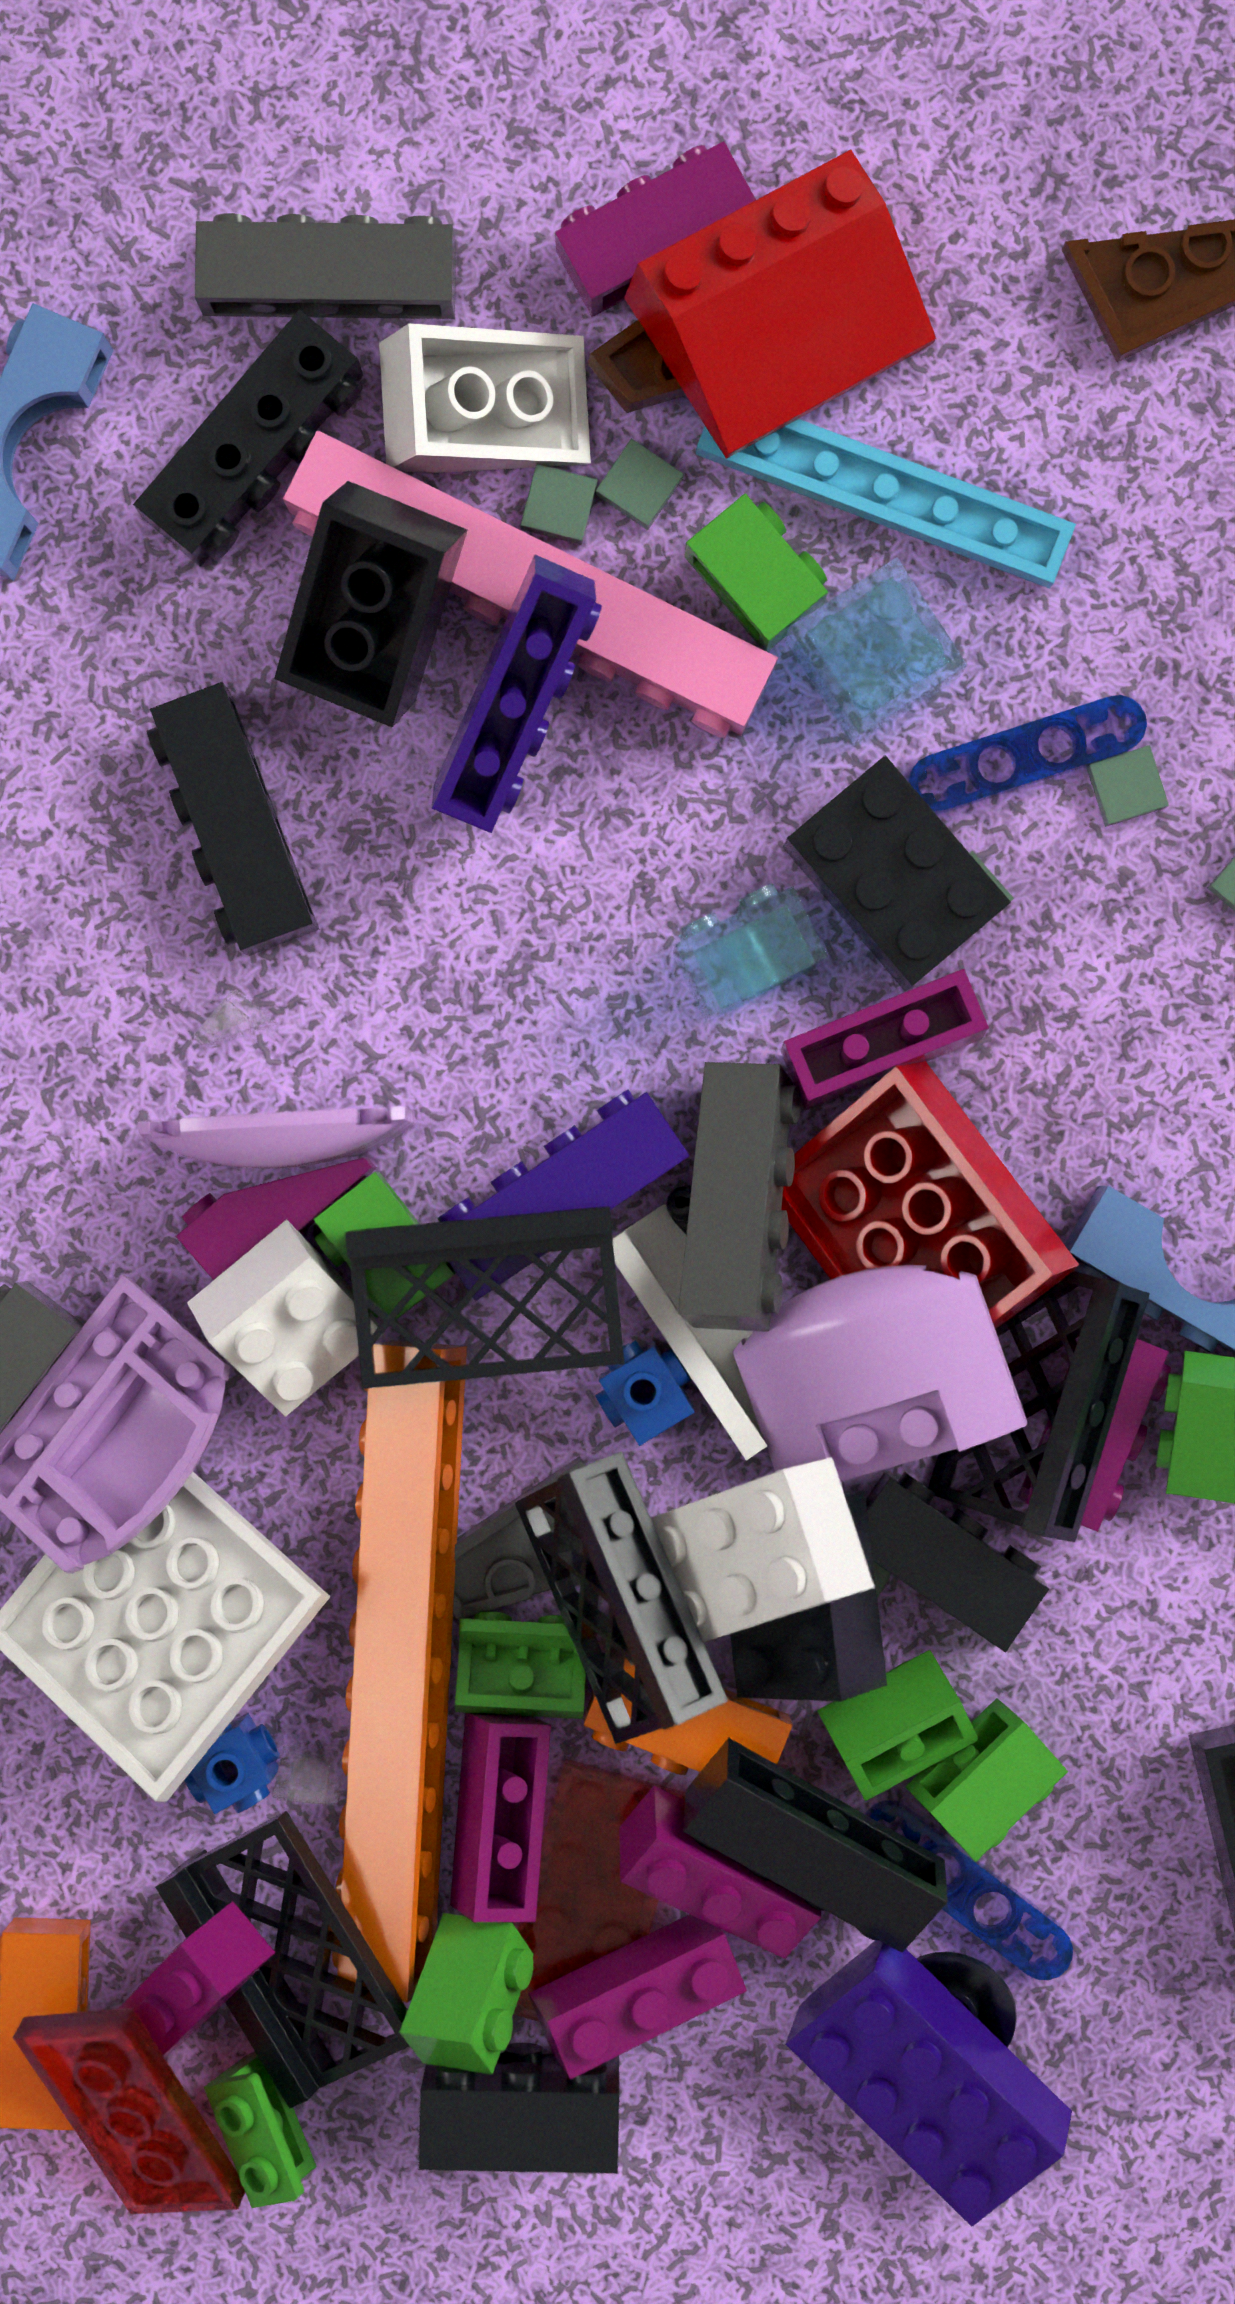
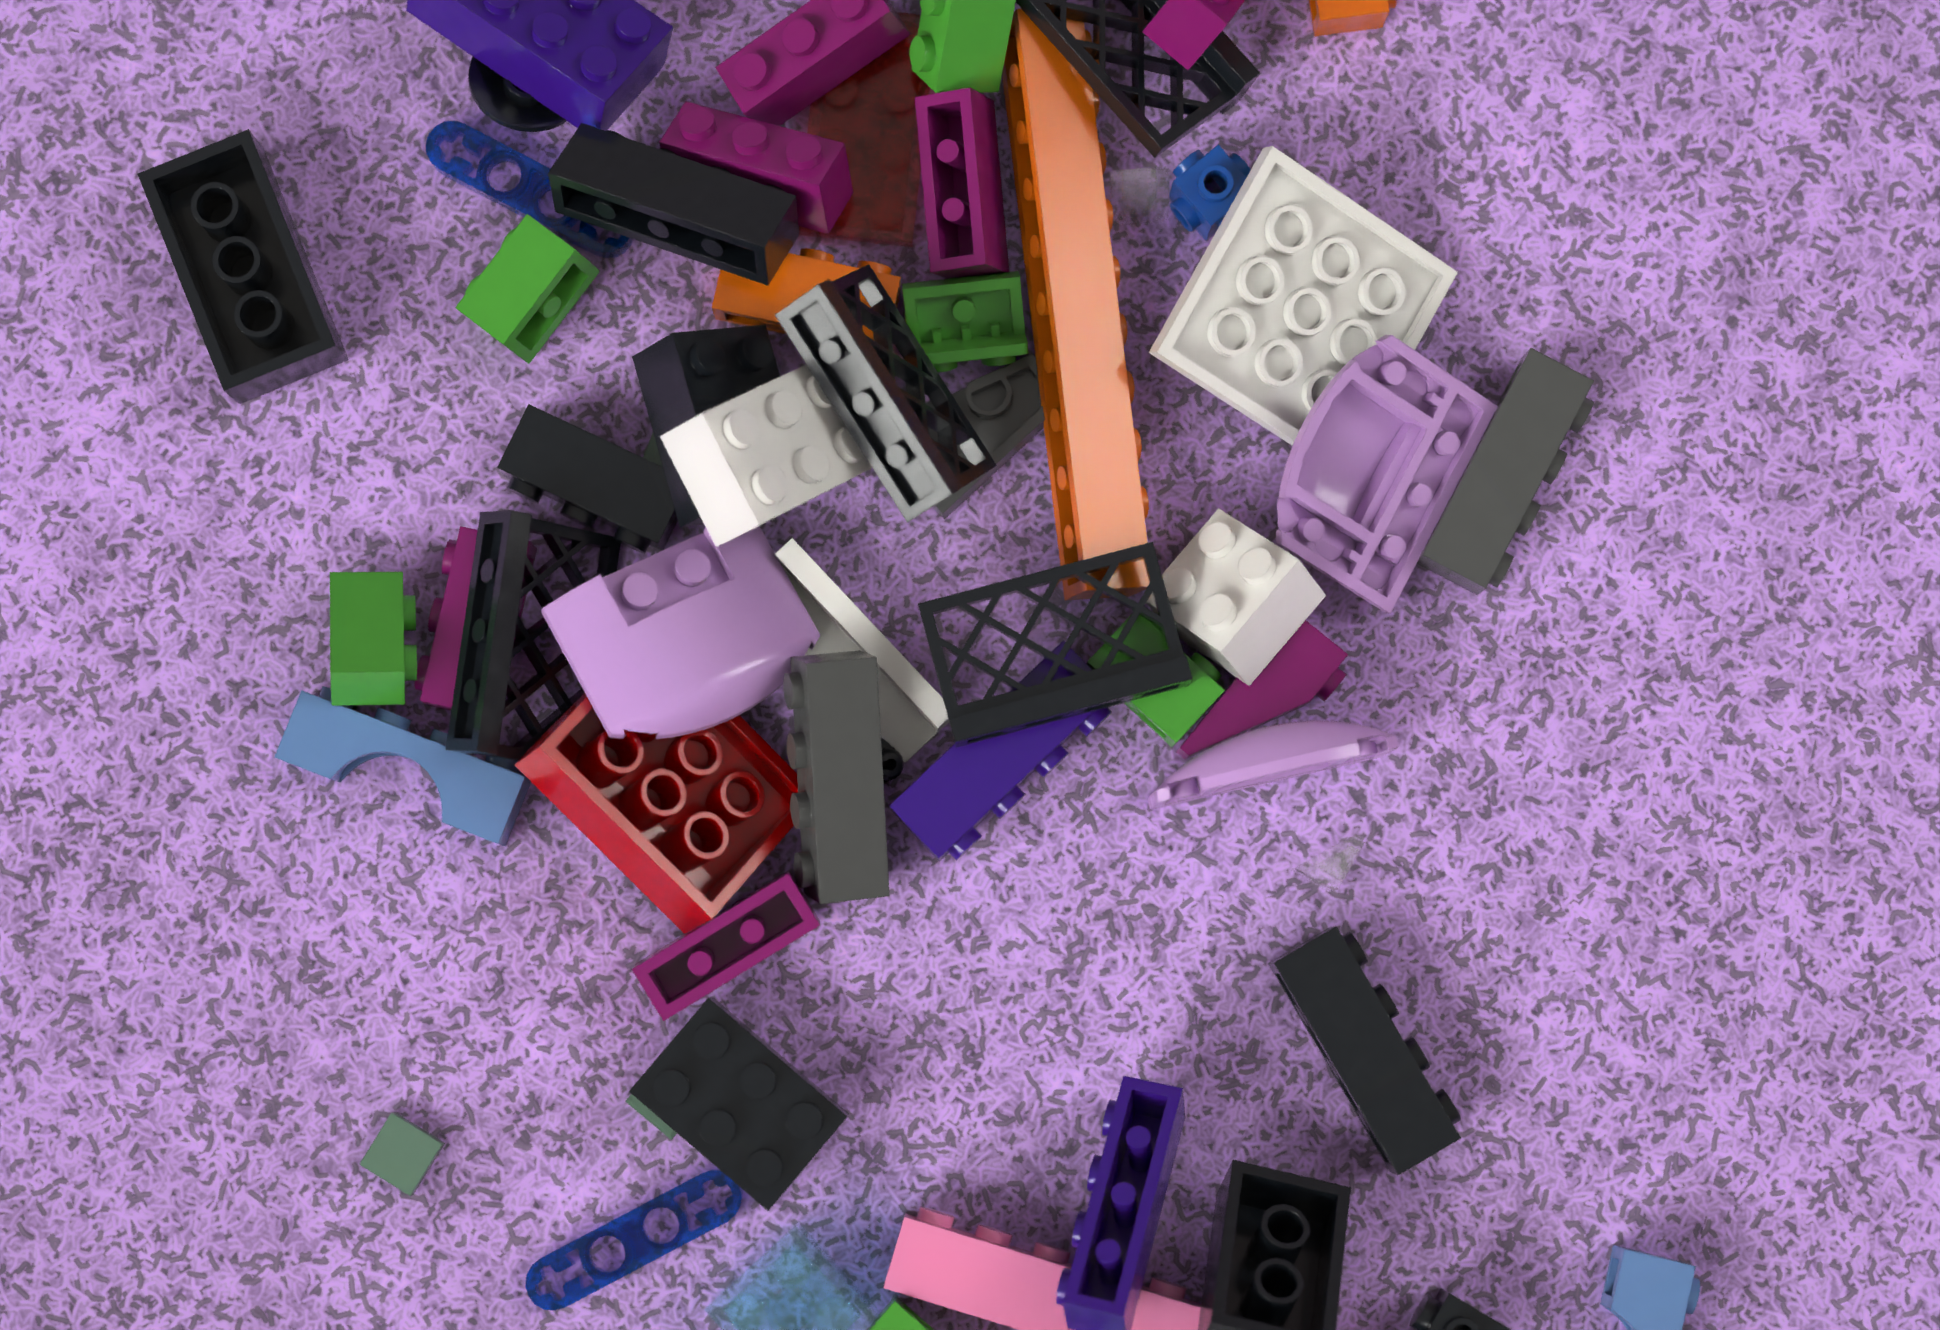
camera: 170 degrees right, 5 degrees down
(645, 1414) = (890, 565): blue brick -> none
(748, 952) = (864, 1003): clear light blue brick -> none
(898, 1726) = (614, 322): bright green brick -> none
(1127, 786) = (534, 1226): sand green tile -> none

